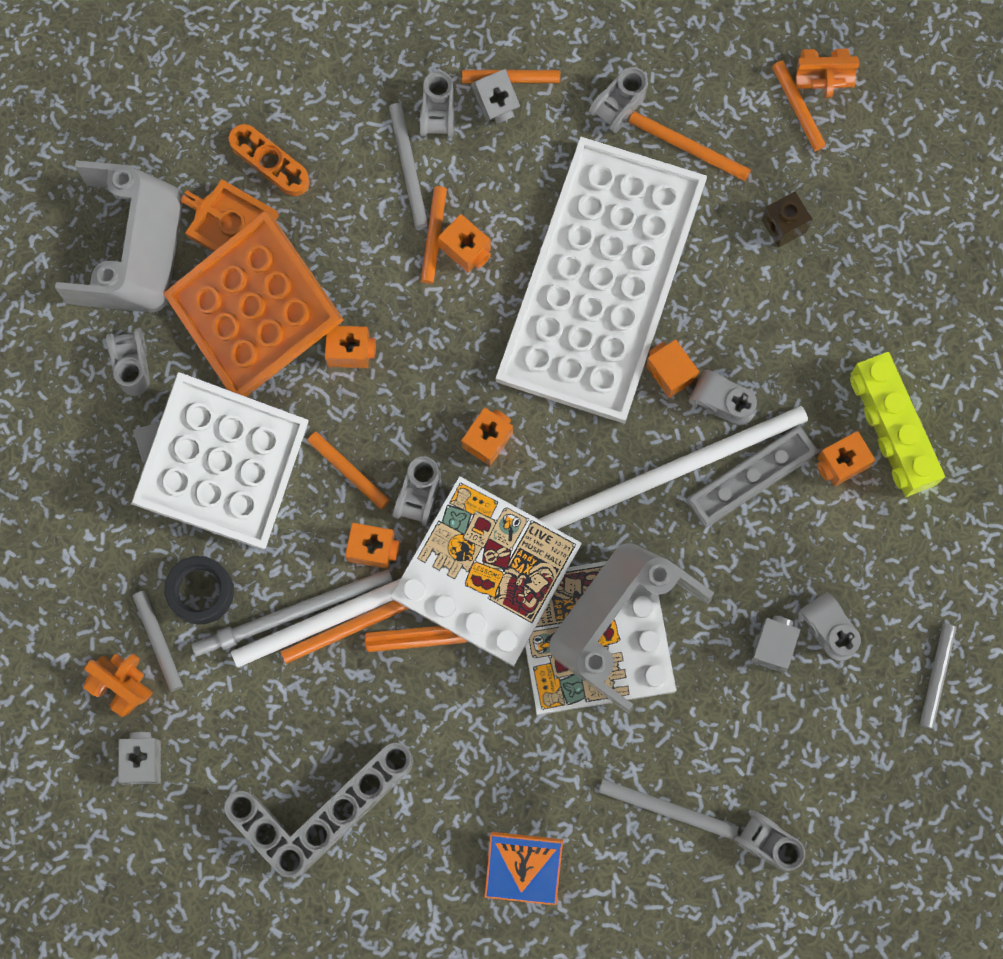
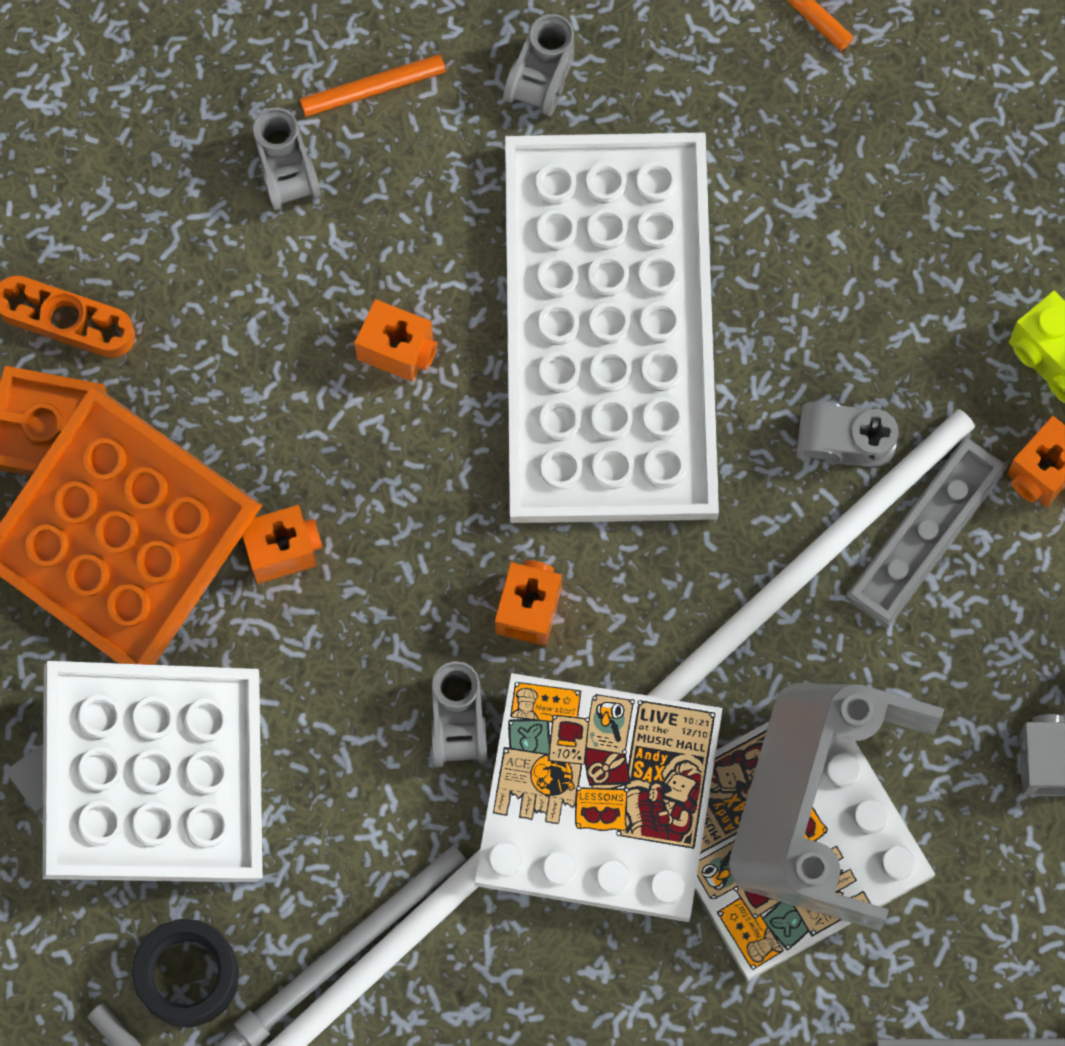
camera: 20 degrees left, 5 degrees down
(342, 631) = (418, 959): orange bar -> none
(348, 470) = (342, 722): orange bar -> none
(364, 535) = (400, 809): orange brick -> none
(408, 166) = (270, 259): light grey bar -> none
(410, 638) = (523, 935): orange axle -> none
(434, 231) = (343, 344): orange bar -> none
(500, 84) = (355, 103): light grey brick -> none
(671, 367) = (755, 417): orange brick -> none
(689, 146) = (662, 100): orange bar -> none
(786, 219) = (844, 151): dark brown brick -> none

